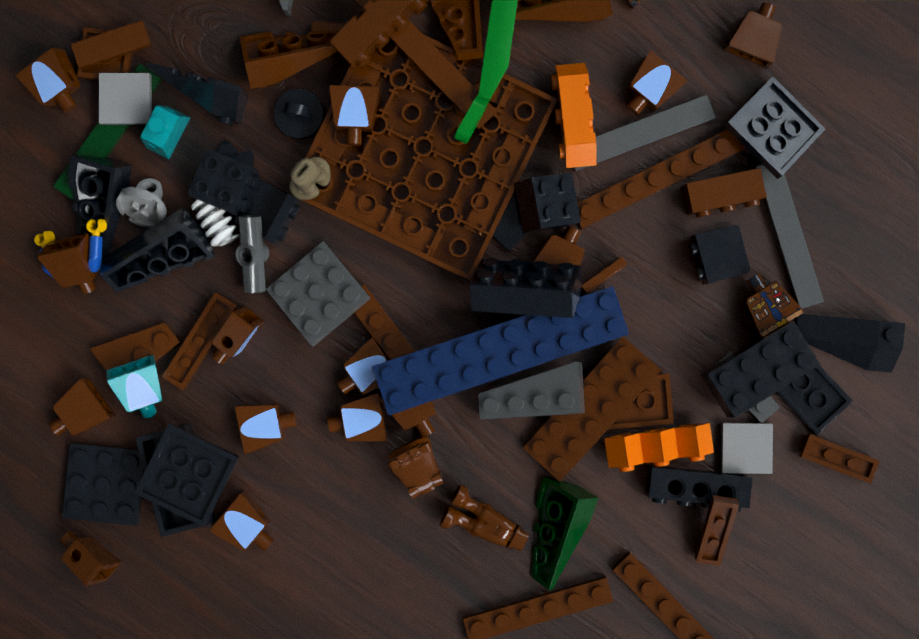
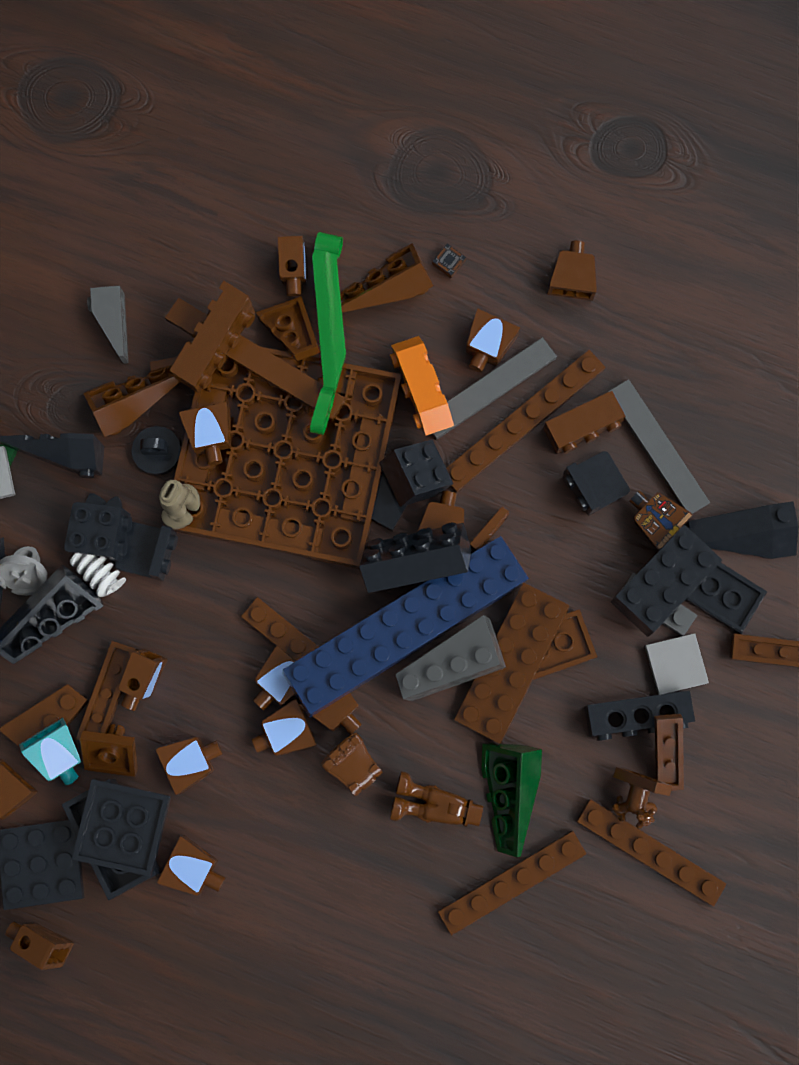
camera: 20 degrees left, 10 degrees down
(164, 130) = (28, 496): teal torso -> none
(191, 398) = (109, 752): none -> reddish brown tile
(252, 253) = (140, 593): dark grey piece -> none
(318, 293) = (214, 617): dark grey plate -> none
(659, 446) = (588, 683): orange brick -> none
(675, 565) = (638, 796): none -> reddish brown piece
(774, 127) = (614, 350): plate -> none

